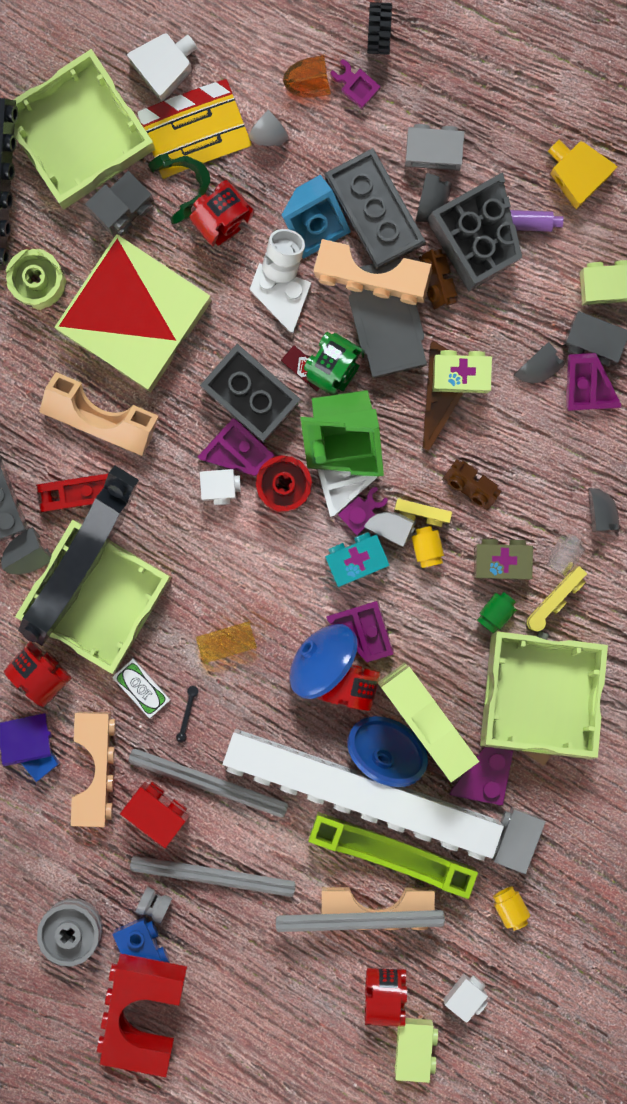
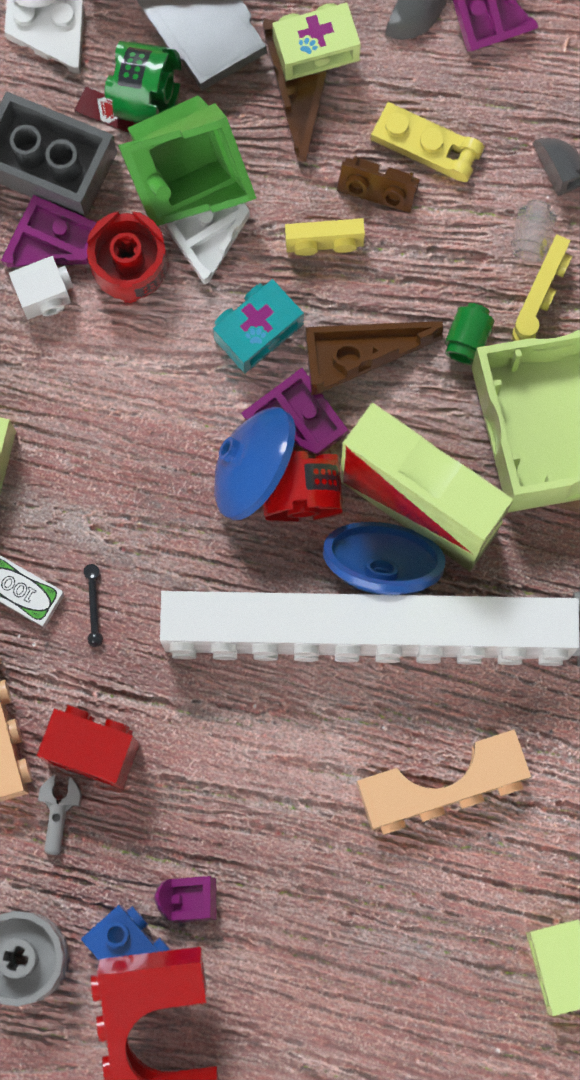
camera: 15 degrees left, 10 degrees down
(122, 843) = (57, 811): none -> light grey bar
(159, 908) = (137, 884): light grey wheel -> none
(188, 928) = (187, 899): none -> magenta plate
(208, 783) = (151, 688): light grey axle -> none
(212, 876) = (198, 816): light grey axle -> none
(226, 642) = (116, 489): clear yellow plate -> none
(356, 921) = (424, 802): light grey axle -> none
(359, 512) = (242, 267): magenta plate -> none
(385, 997) = (496, 901): red brick -> none
(392, 526) = (290, 263): brick -> none
(394, 854) = (440, 701): lime arch -> none
(413, 599) = (349, 351): none -> reddish brown wing
(428, 547) = (347, 279): yellow brick -> none
(487, 778) = (530, 557): magenta wing -> none
(503, 561) = (453, 264): olive brick -> none
(515, 464) = (426, 142): none -> light yellow plate

